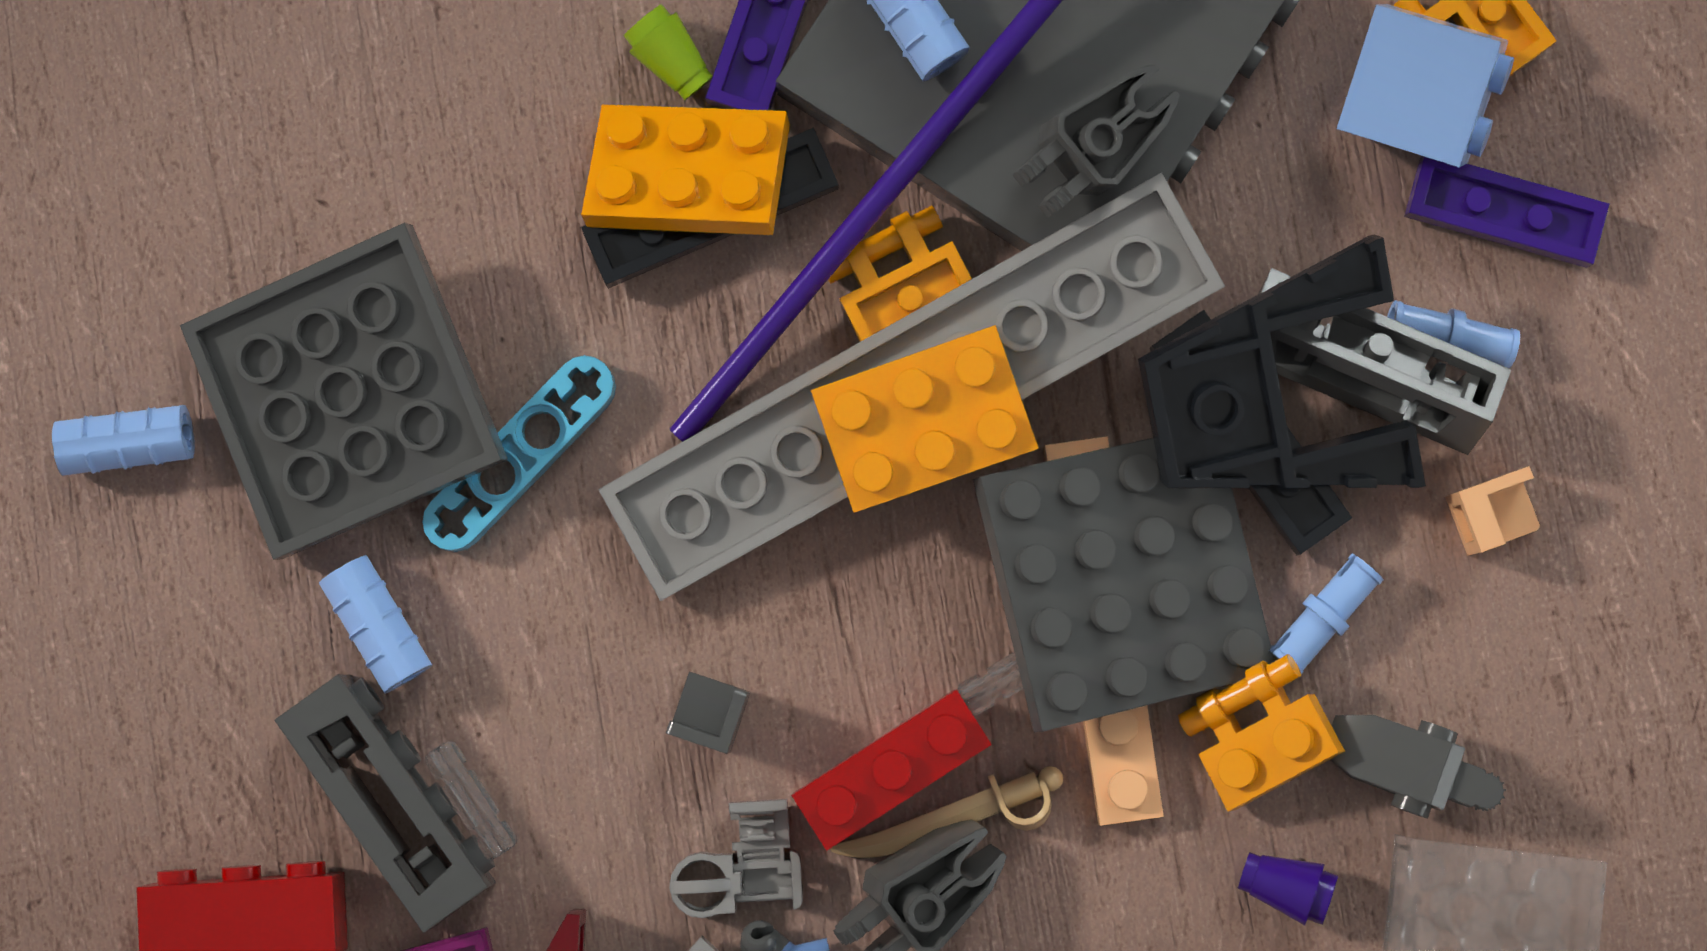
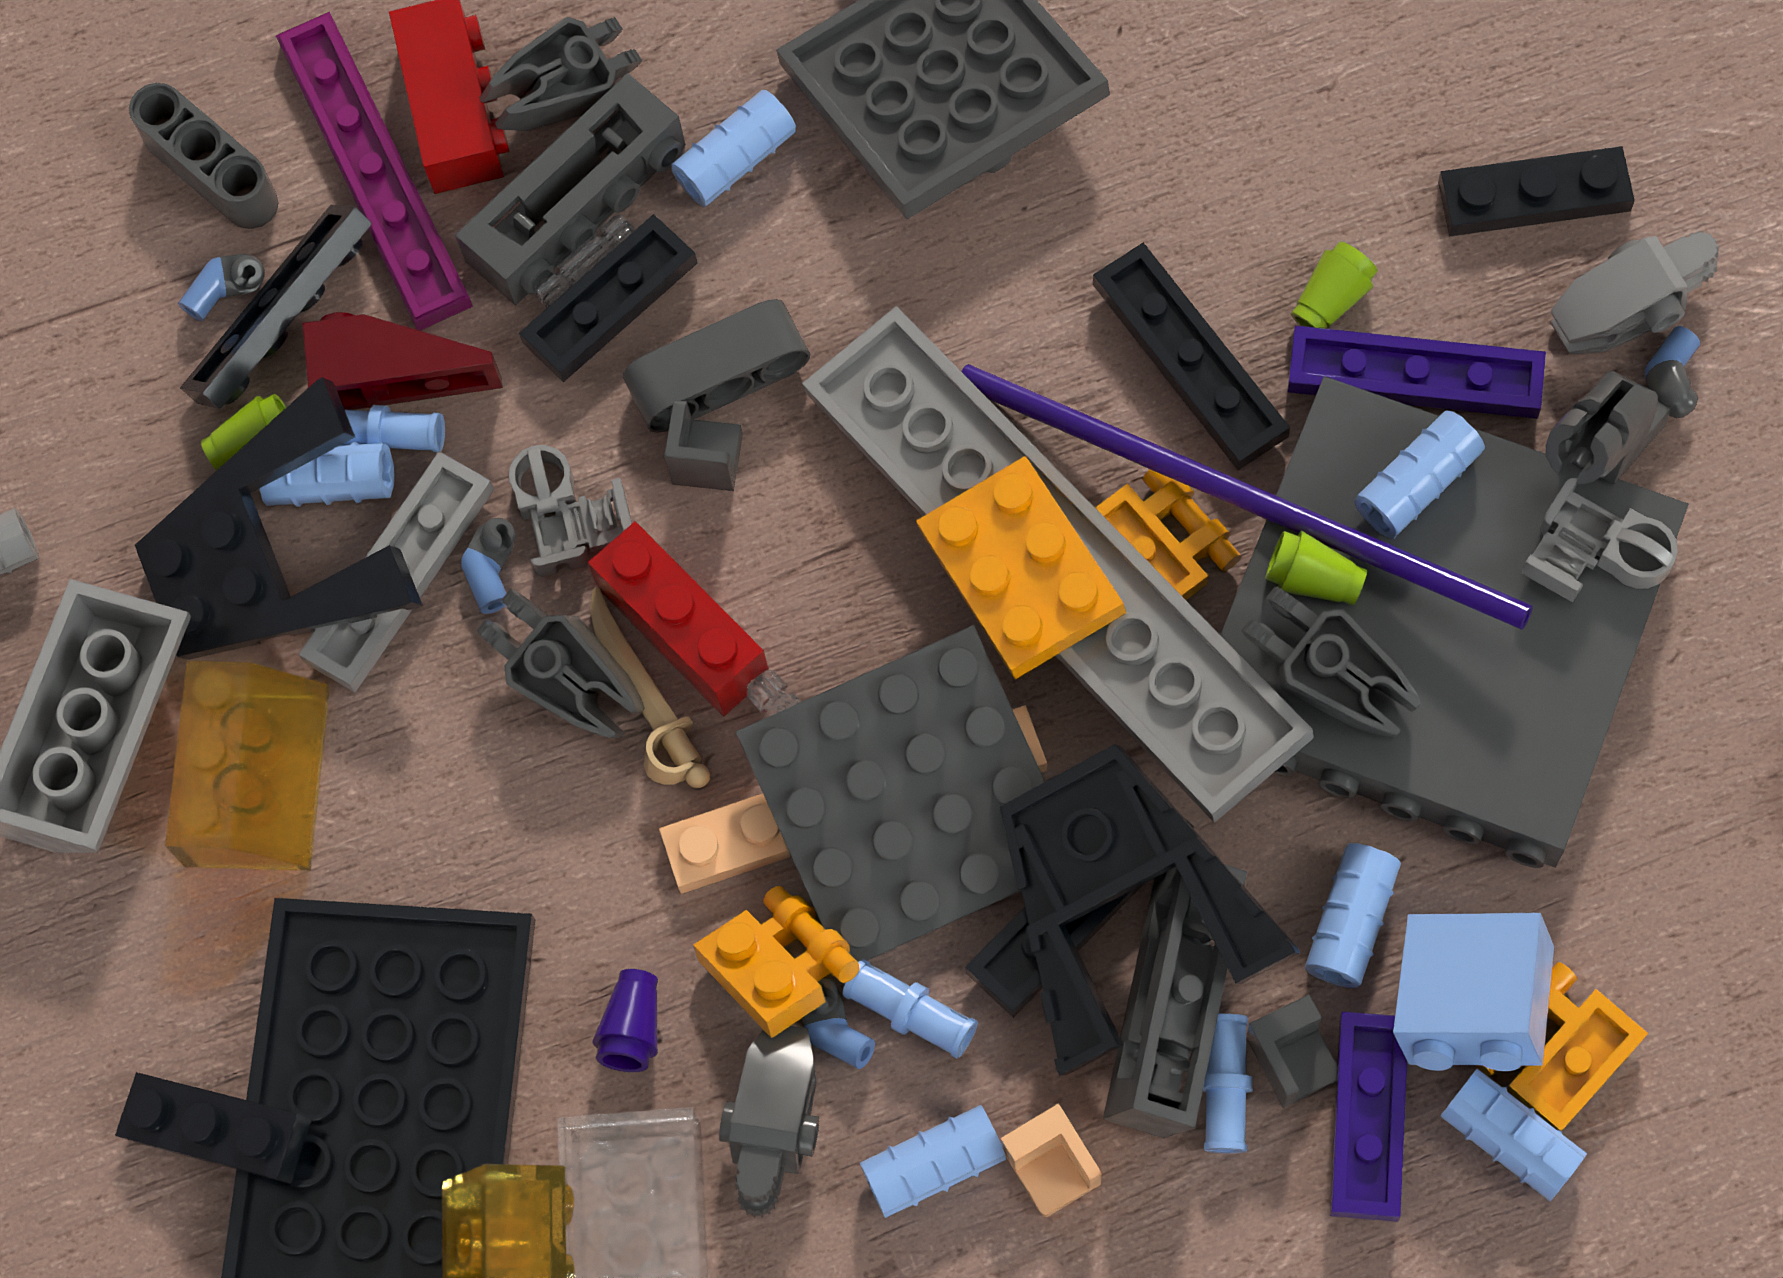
camera: 85 degrees right, 15 degrees down
(252, 790) = (559, 74): none -> dark grey hinge
(517, 783) = (608, 298): none -> black plate
(527, 461) = (912, 248): medium azure beam -> none
(619, 685) = (717, 364): none -> dark grey beam
(686, 169) = (1220, 320): light orange plate -> none
(987, 136) = (1314, 570): none -> lime cone
(1315, 181) = (1352, 915): none -> light blue axle
(1335, 691) = (831, 1033): none -> medium blue arm
(1432, 266) = (1293, 1051): none -> dark grey panel
(1477, 621) = (933, 1161): none -> light blue axle
(1550, 84) = (1513, 1135): none -> light blue axle

